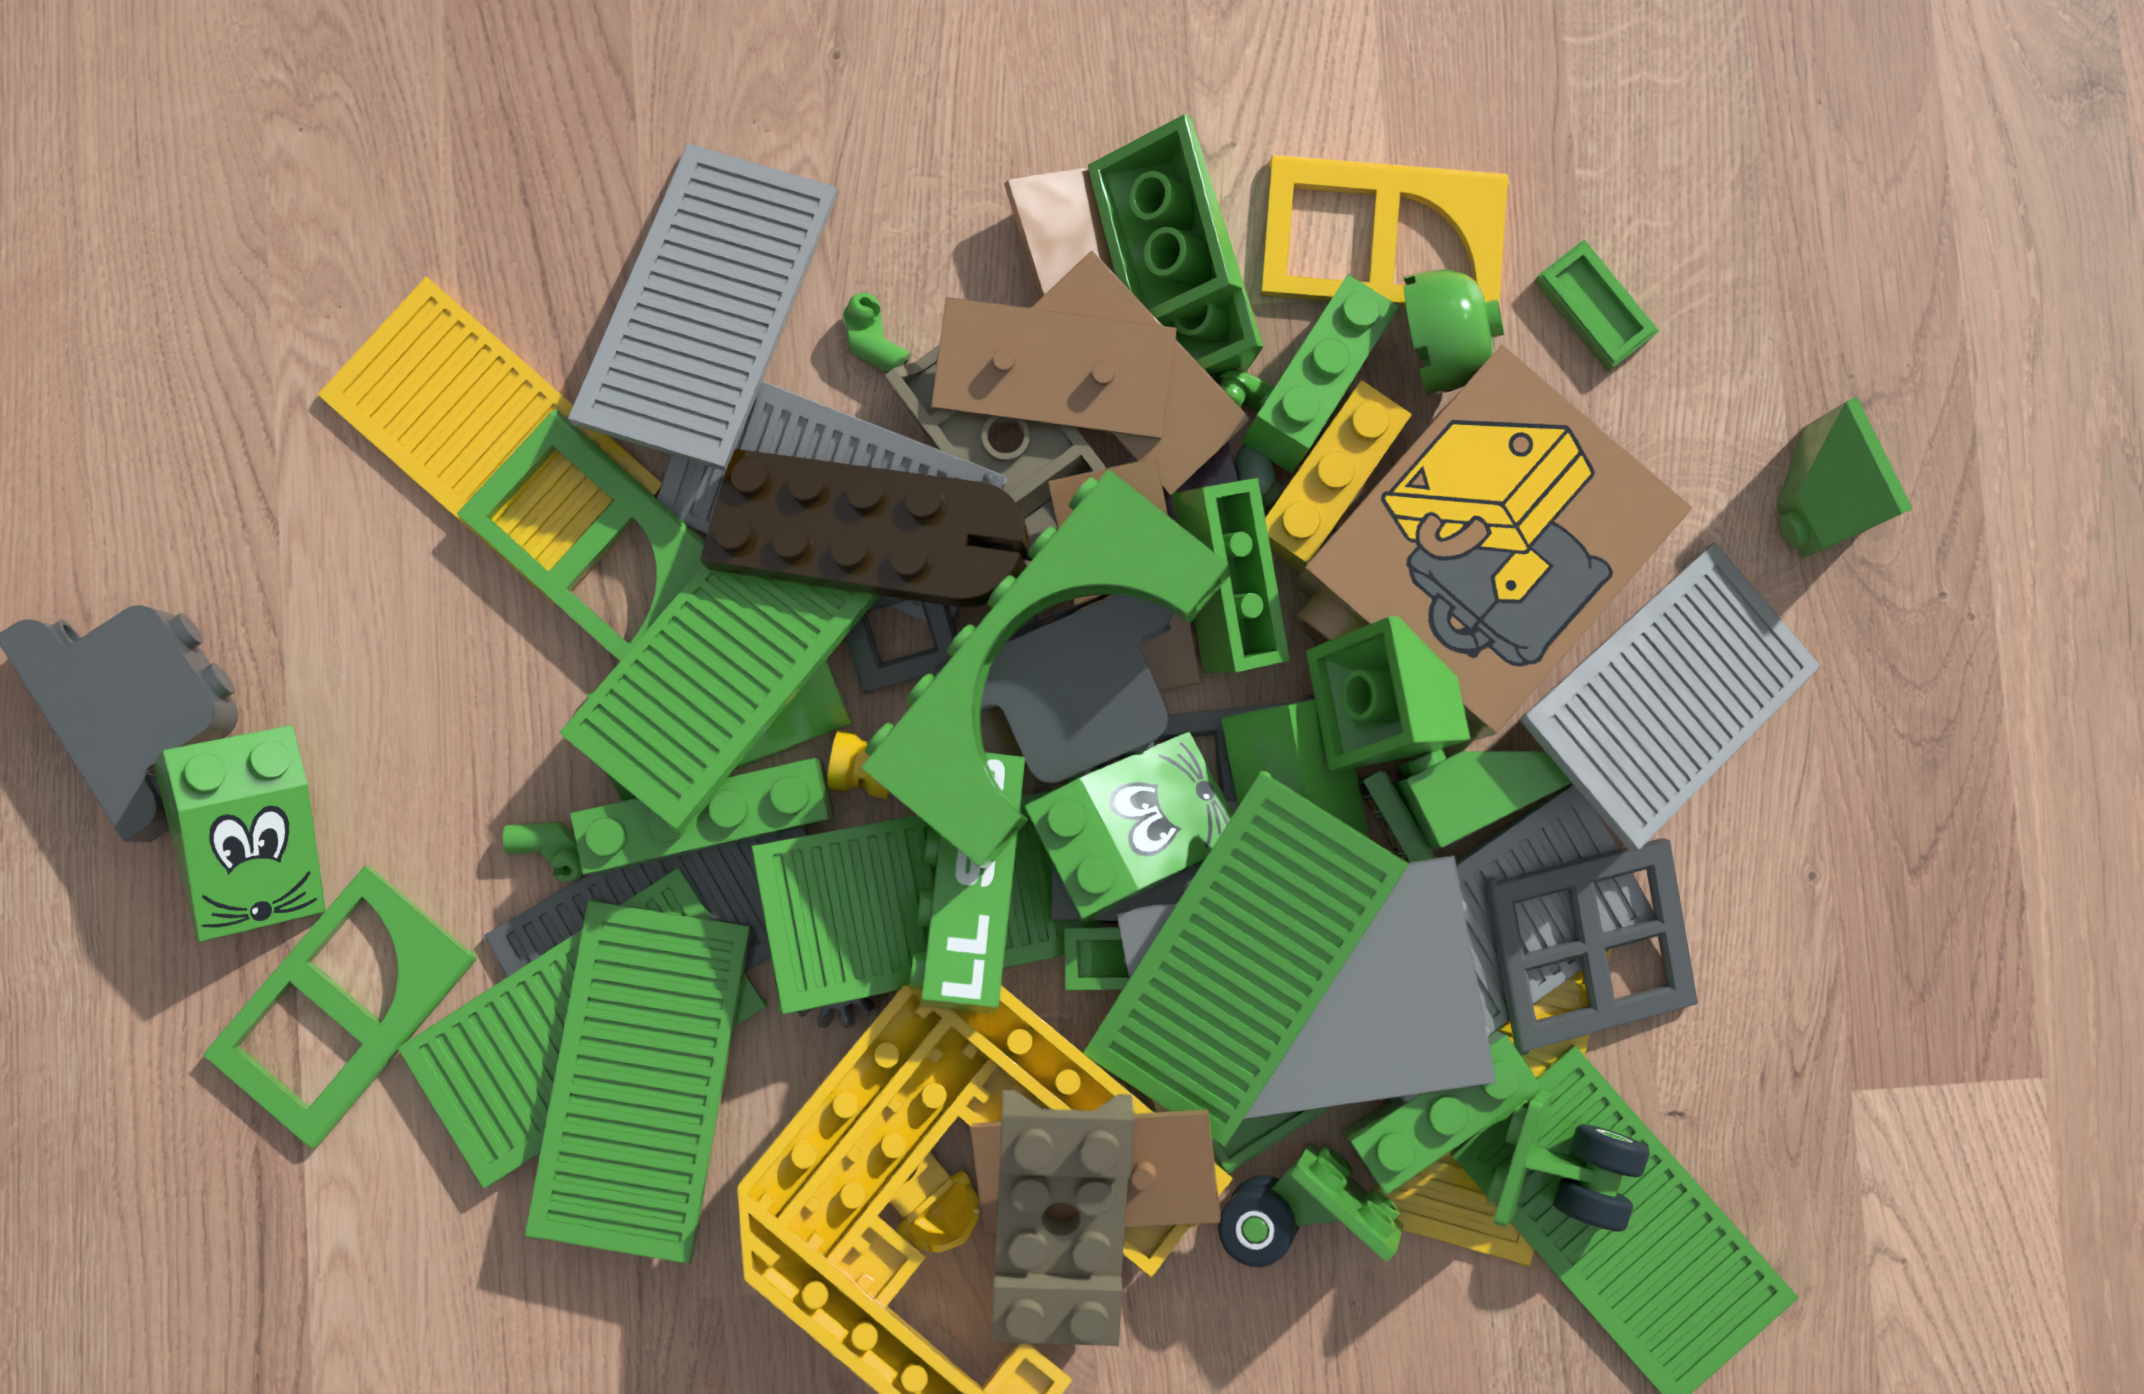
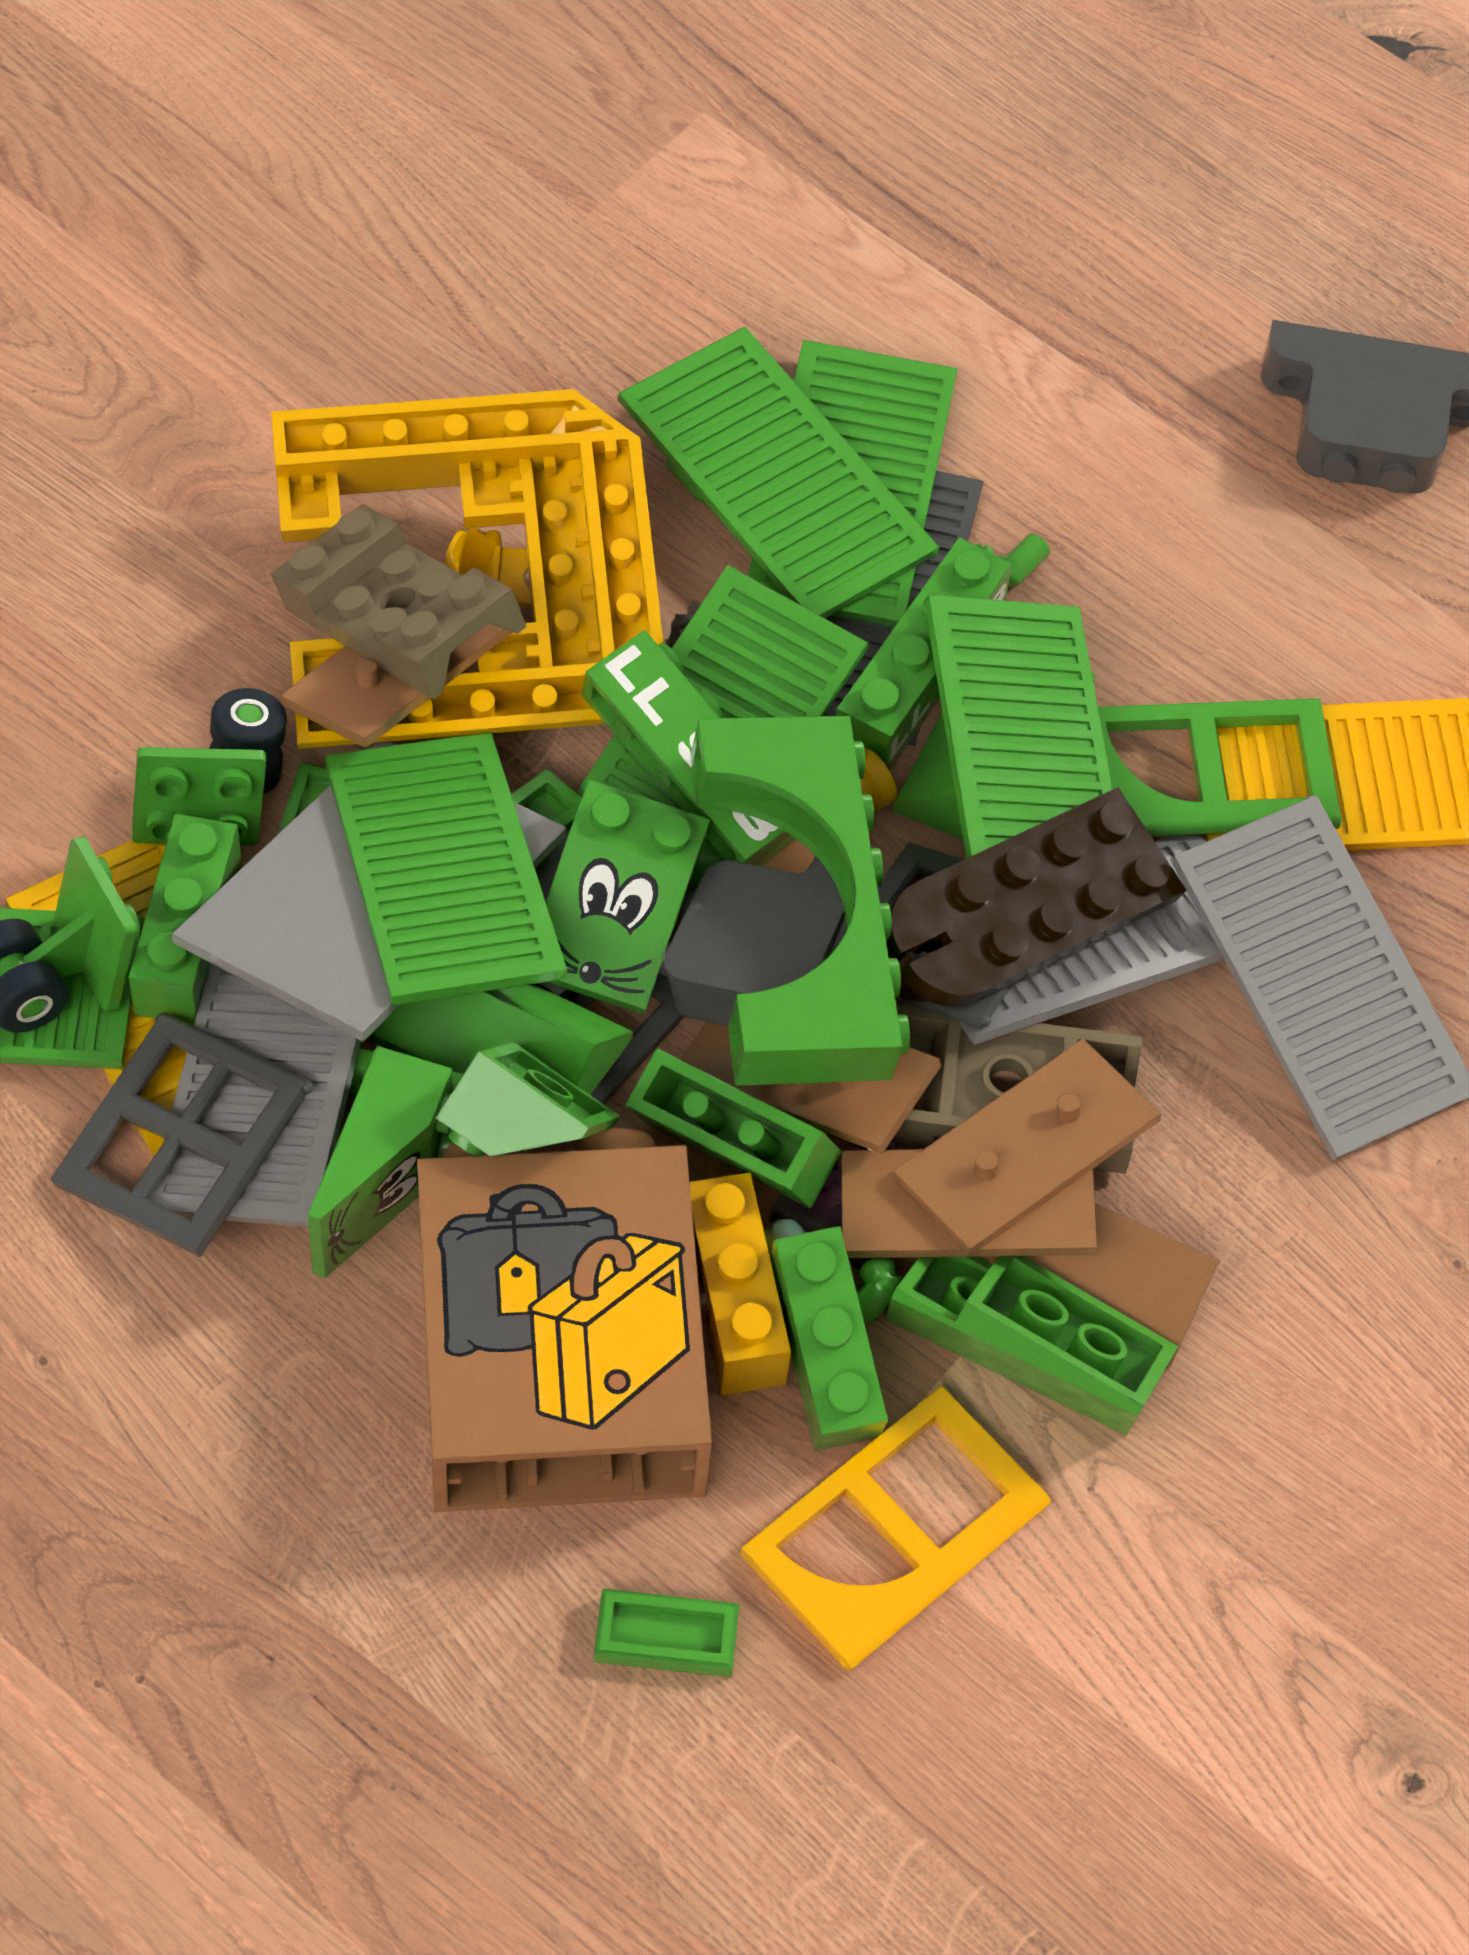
camera: 130 degrees right, 25 degrees down
(242, 831) = (1209, 389): bright green slope -> none
(428, 969) = (991, 430): bright green window -> none
(866, 334) = (1187, 1075): bright green arm -> none
(1450, 327) = (770, 1453): bright green cylinder -> none
(1670, 696) = (303, 1342): light grey window -> none
(1837, 482) = (322, 1643): bright green slope -> none

